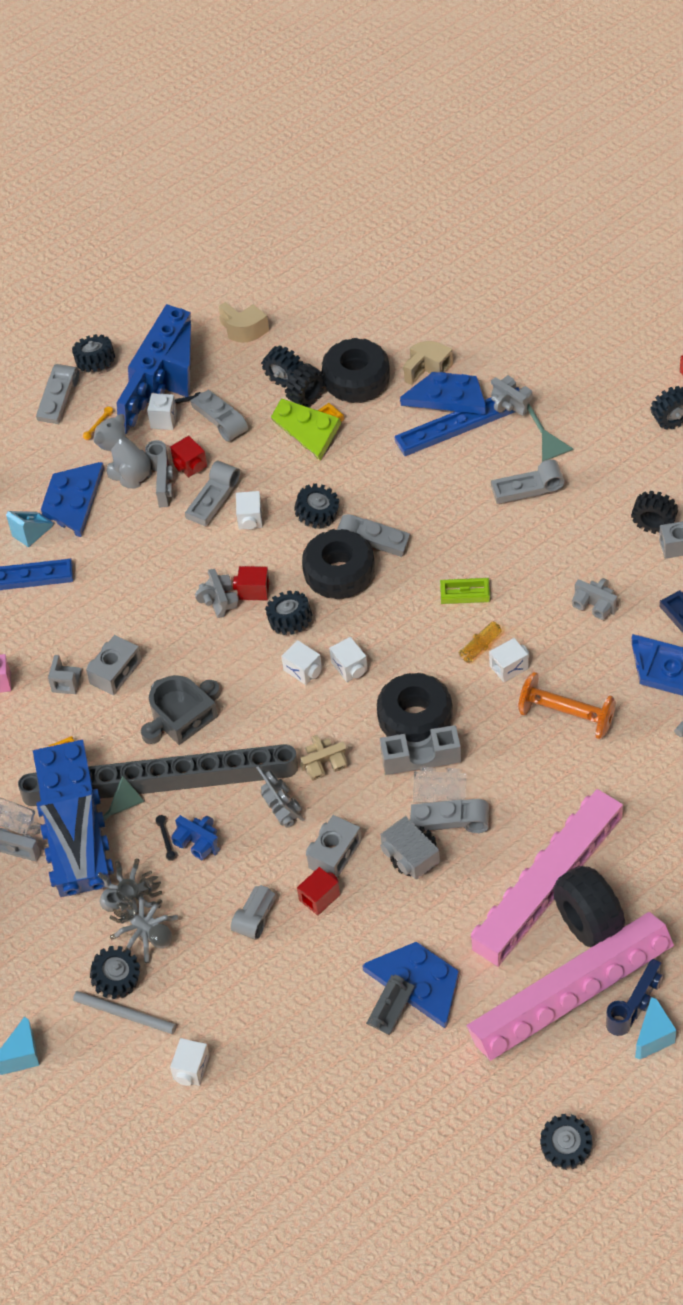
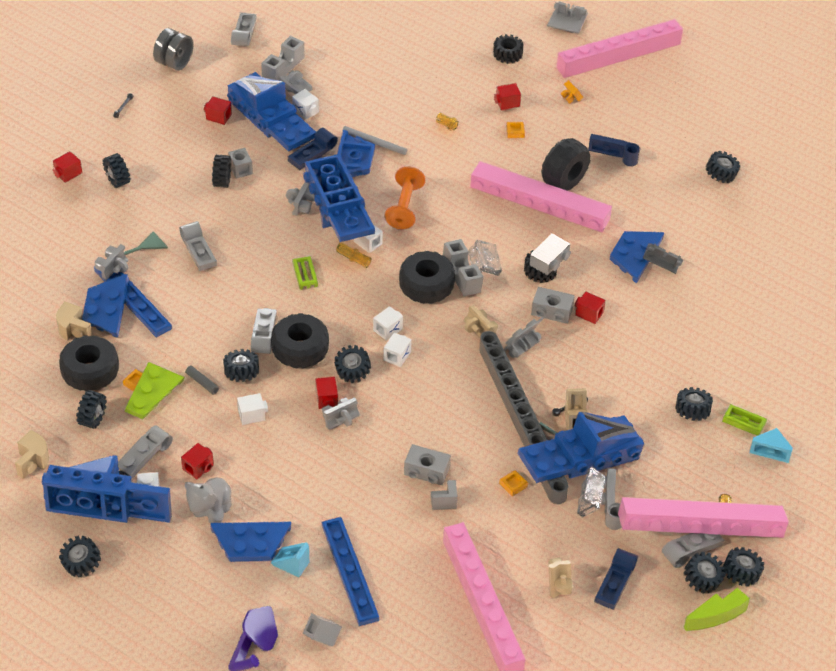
camera: 110 degrees left, 5 degrees down
(57, 393) = (129, 575): light grey plate -> none
(82, 1038) = (744, 422): none -> lime tile
(108, 411) = (144, 537): light orange hinge -> none
(124, 1012) = (717, 399): light grey bar -> none
(128, 888) = (631, 407): animal -> none
(137, 832) = (575, 402): none -> tan brick
(147, 927) = (654, 391): animal -> none
(159, 462) = (229, 472): light grey plate -> none
(180, 708) = (458, 415): dark grey piece -> none
(189, 1062) = (743, 351): white brick -> none
(198, 832) = (564, 381): blue hips -> none
(220, 484) = (236, 437): light grey plate -> none
(251, 919) = (624, 340): light grey piece -> none
(305, 385) = (114, 389): black tyre -> none
(311, 474) = (202, 380): none -> dark grey piece
(469, 813) = (507, 251): light grey plate -> none
(558, 615) = (338, 198): none -> blue wedge
(569, 986) = (626, 173): bright pink brick -> none
(656, 1031) = (636, 135): medium azure slope -> none

